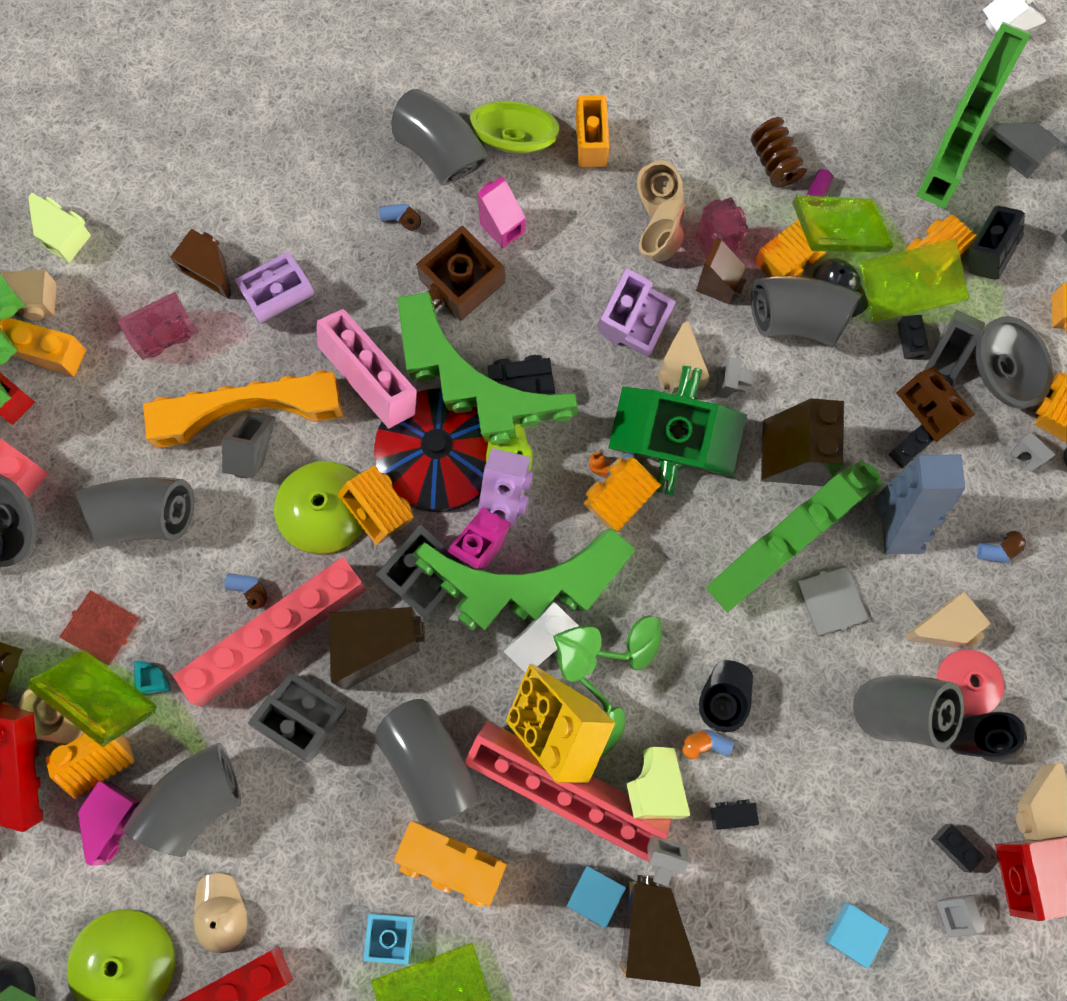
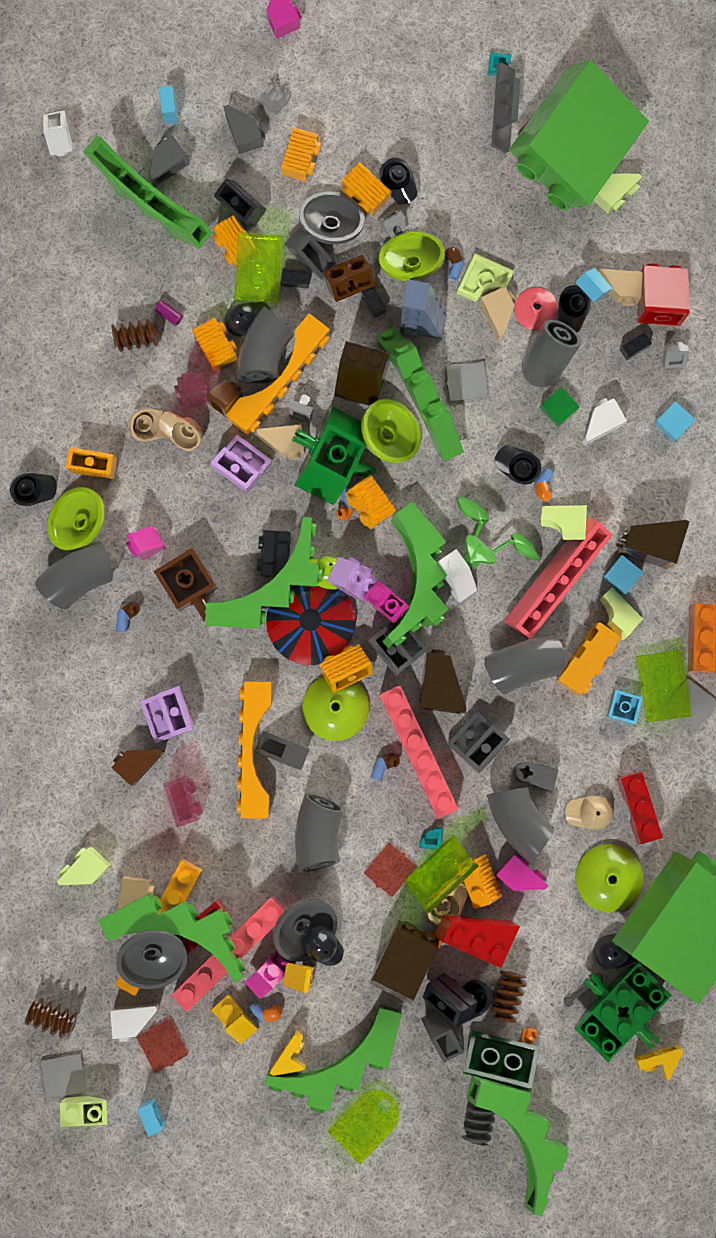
camera: 80 degrees left, 10 degrees up
(262, 823) = (539, 775): none -> dark grey piece
(366, 368) = (246, 658): bright pink brick -> none
(531, 903) = (622, 616): none -> yellowish green tile
(545, 83) = (36, 490): none -> black cap
(559, 726) = (518, 575): yellow slope -> none
(666, 858) = (613, 524): light grey tile -> none
(734, 816) = (591, 478): black piece -> none
(747, 503) = (397, 425): none -> lime dish
(829, 818) = (603, 420): none -> white slope
(831, 367) = (251, 409): none -> light orange arch
(831, 745) = (559, 407): none -> green piece
(842, 224) = (204, 304): clear neon green tile -> none
(995, 483) = (411, 256): none -> lime dish
(995, 593) = (483, 276): none -> yellowish green tile
(1035, 758) = (594, 285): none -> medium azure piece

